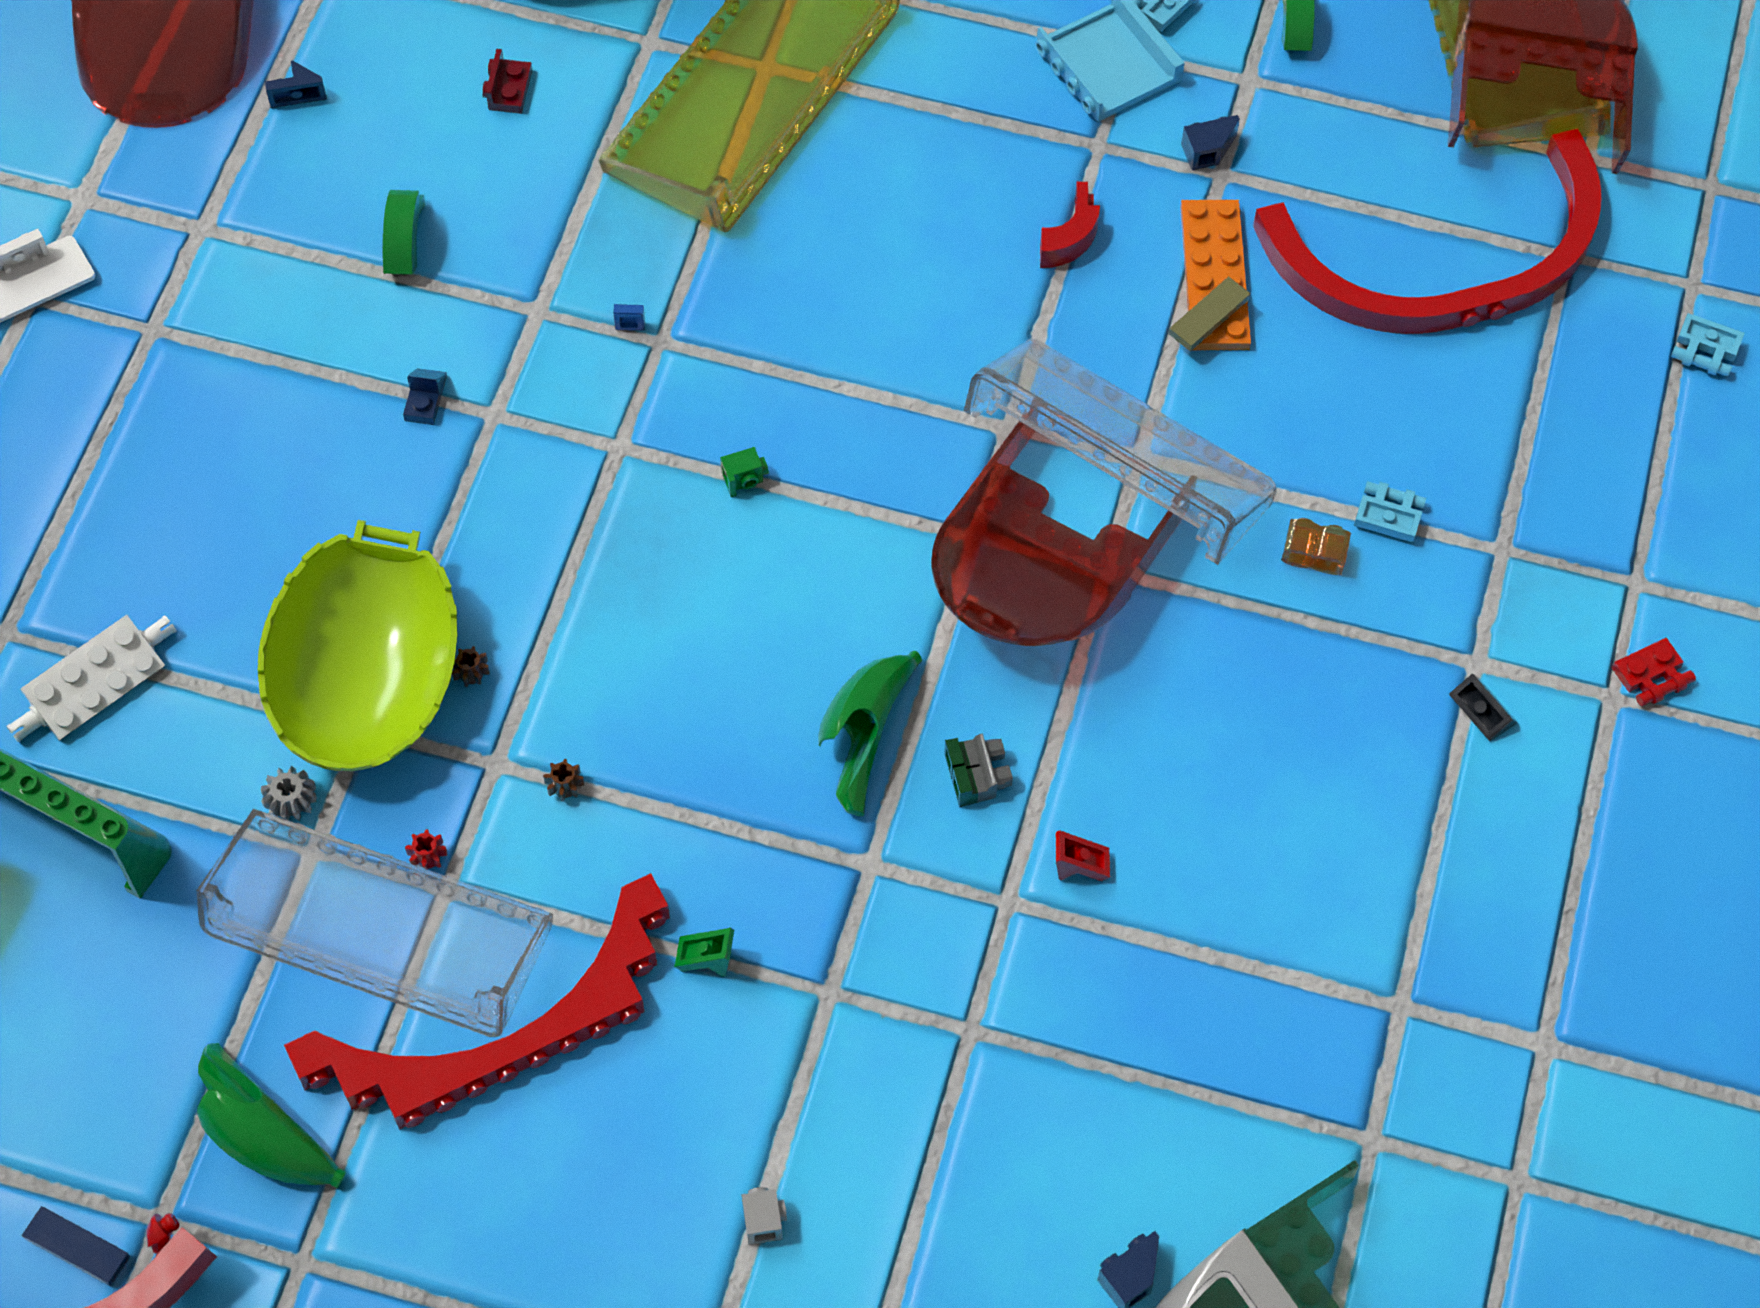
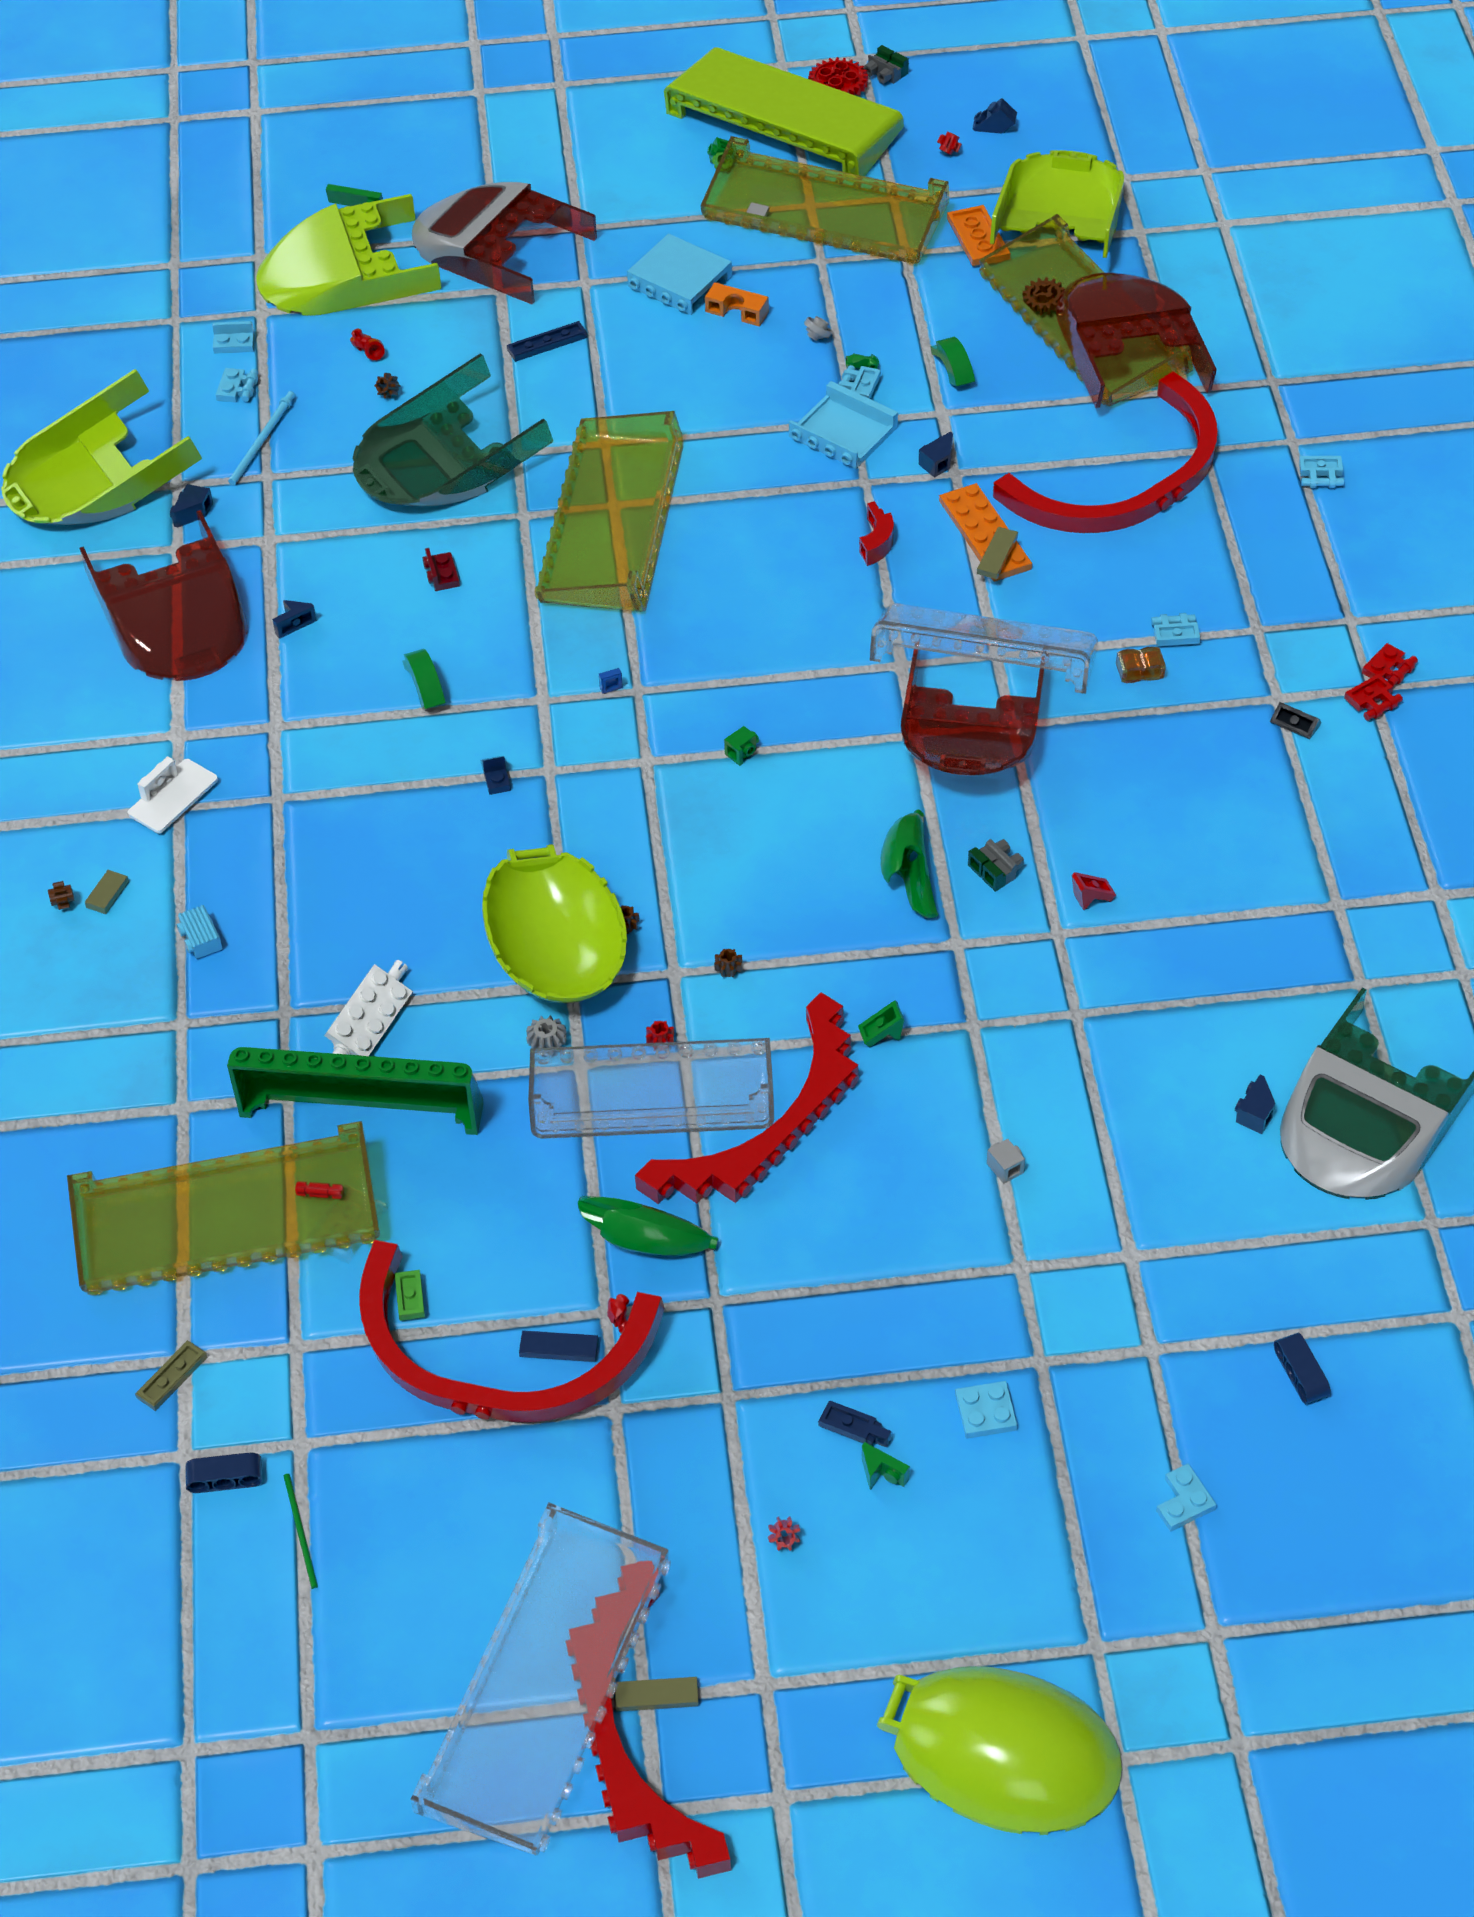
camera: 20 degrees left, 10 degrees down
(1606, 703) = (1369, 692): none -> red plate

